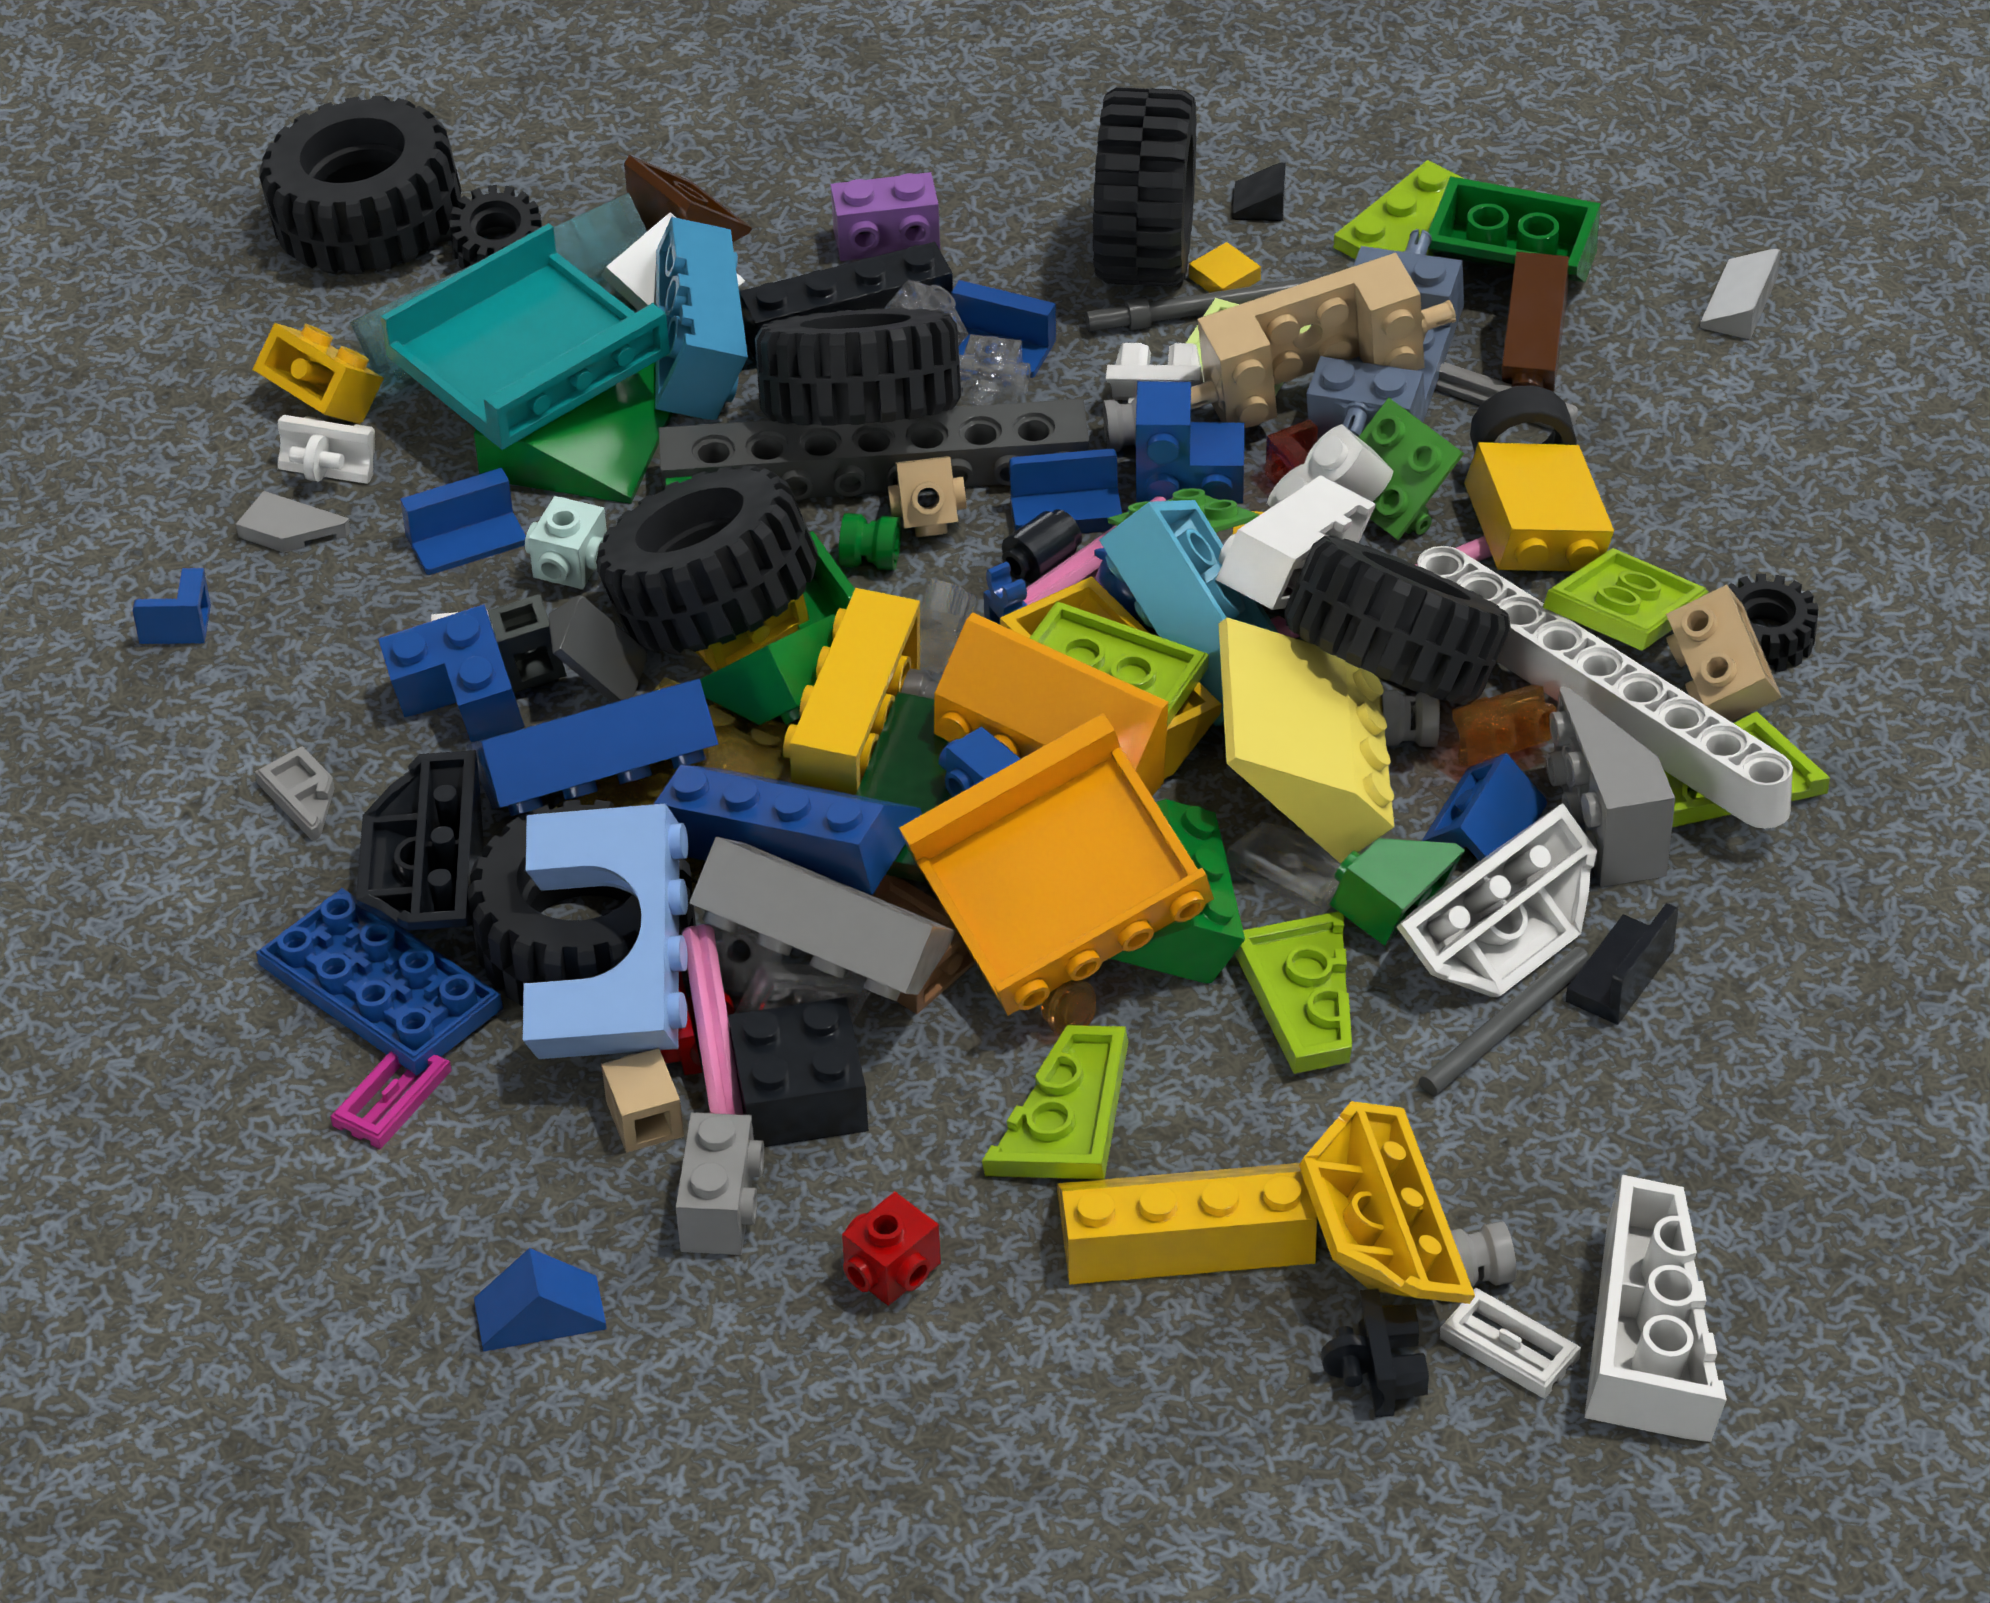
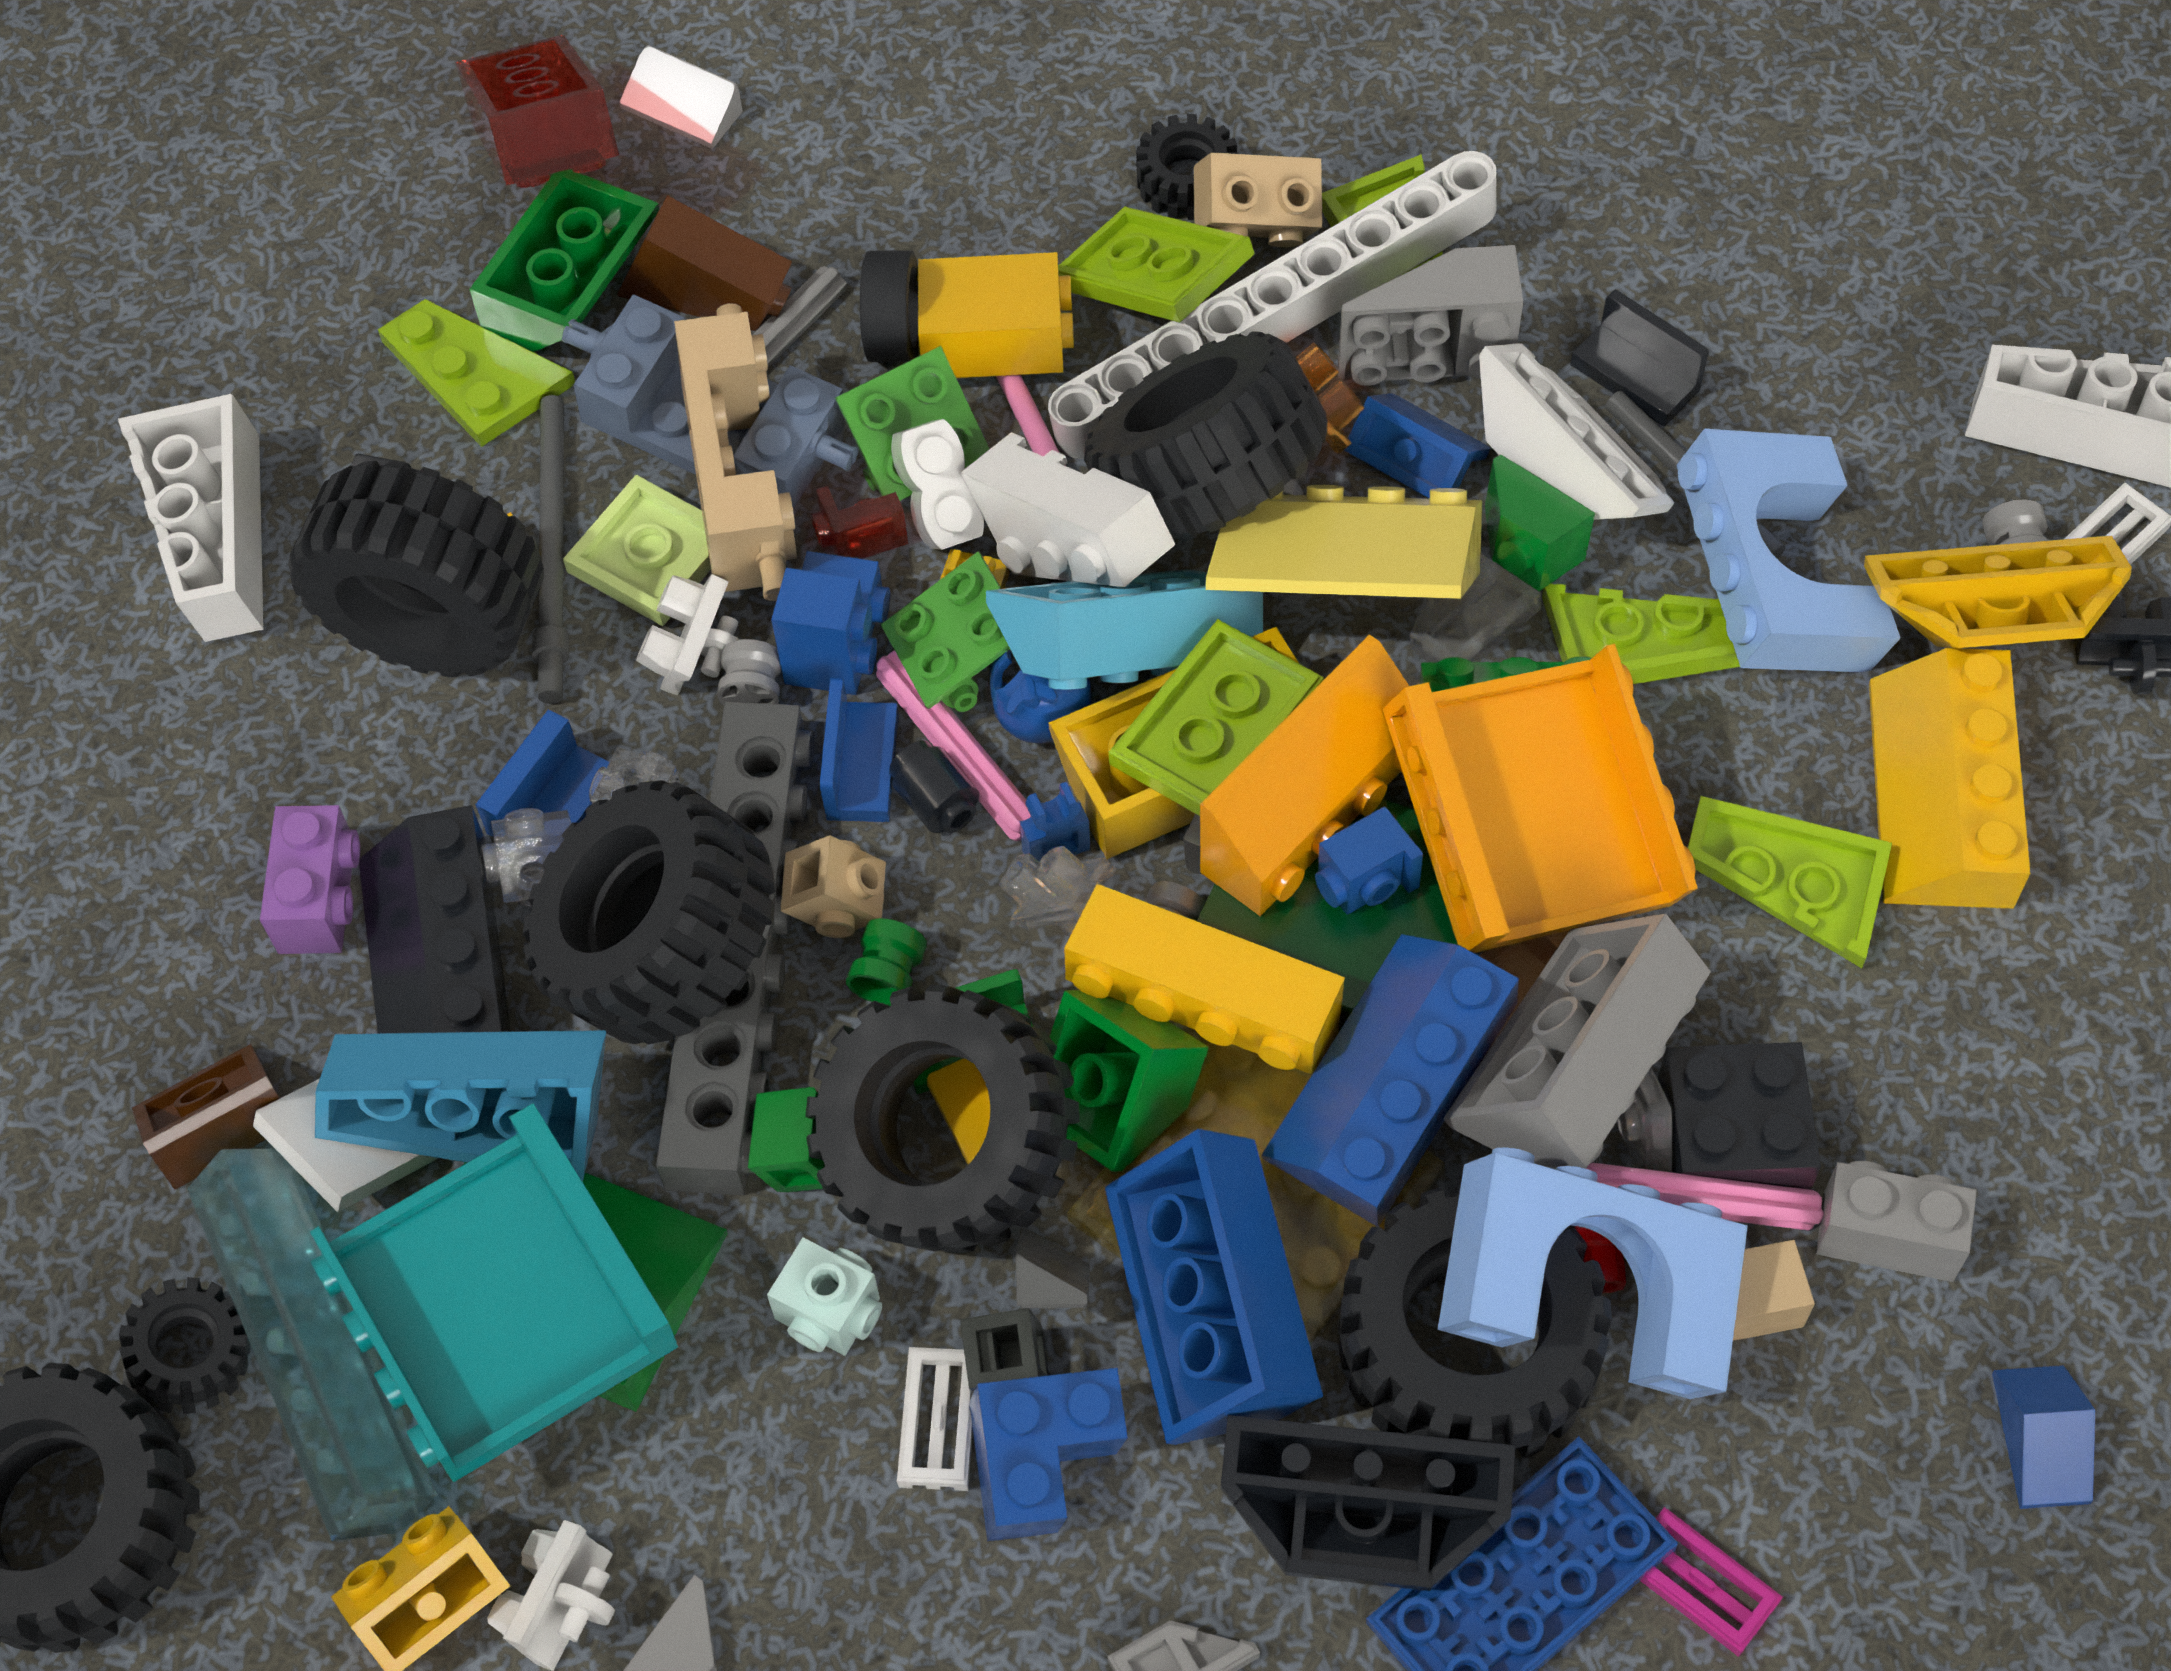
camera: 80 degrees left, 15 degrees up
(462, 522) = (743, 1431): blue panel -> none
(890, 1249) = (2003, 1055): red brick -> none
(1235, 87) = (205, 504): none -> white wedge
(1464, 1008) = (1767, 608): none -> light blue arch
(1650, 174) = (538, 111): none -> clear red brick

